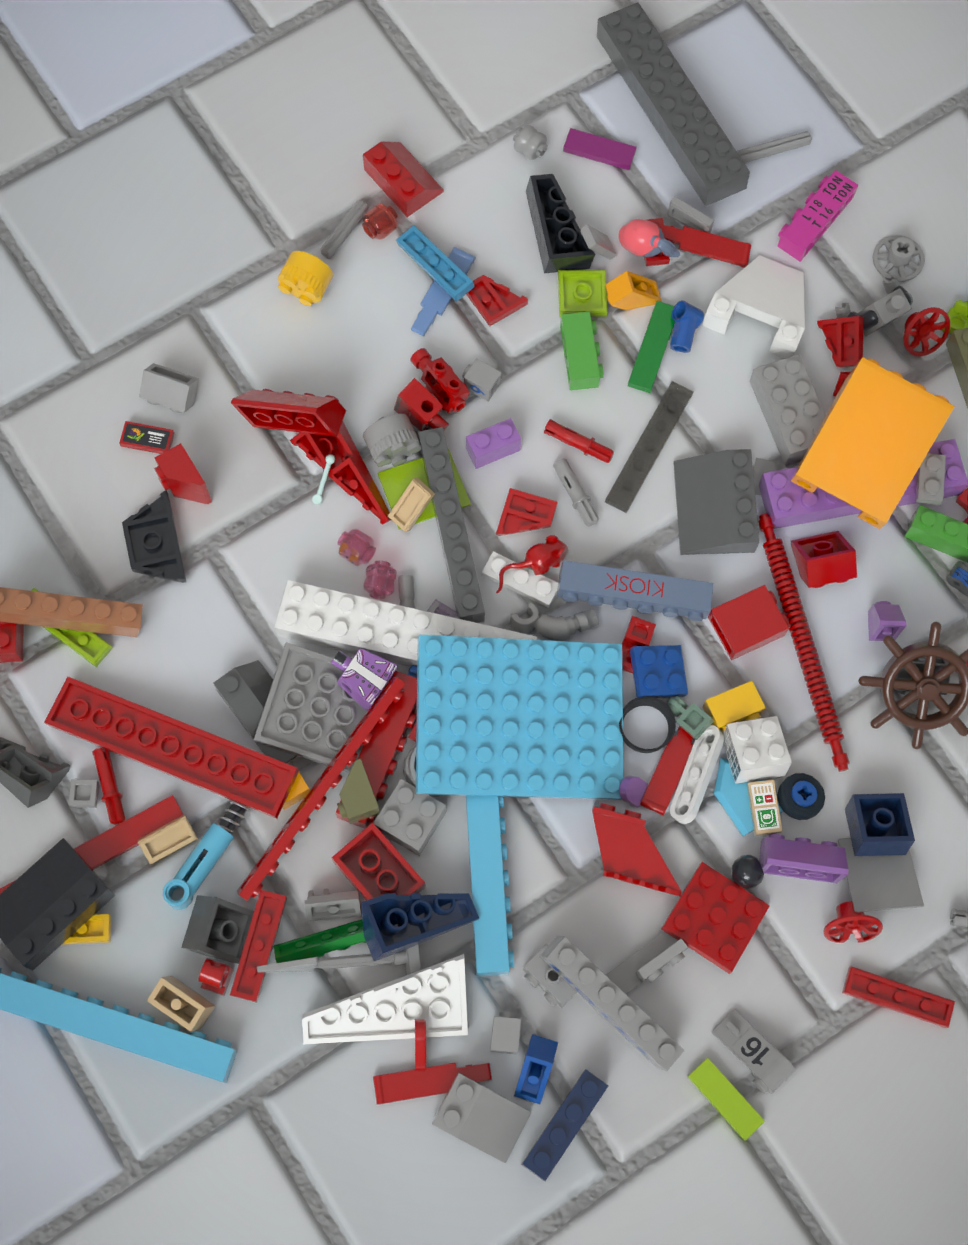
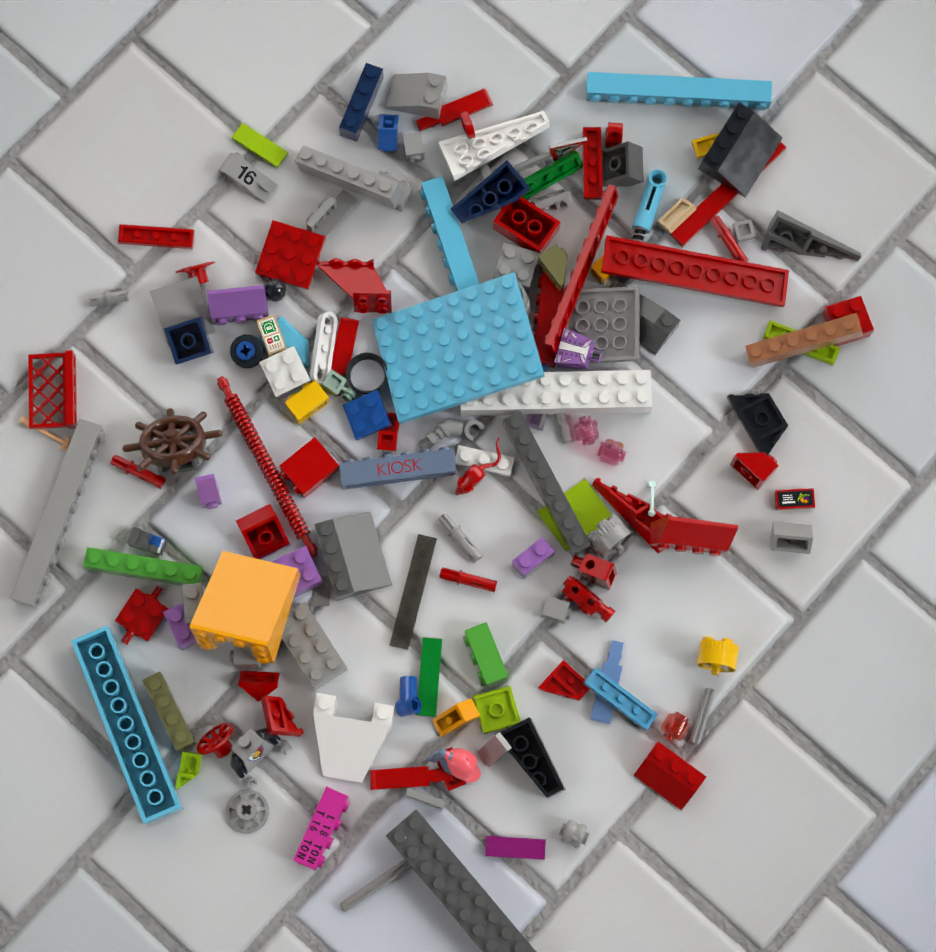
camera: 165 degrees right, 5 degrees up
(181, 1003) = (630, 112): tan brick -> none
(411, 504) = (580, 490): tan tile -> none
(525, 513) = (494, 511): red wing -> none
(632, 790) = (366, 327): medium lavender tile -> none

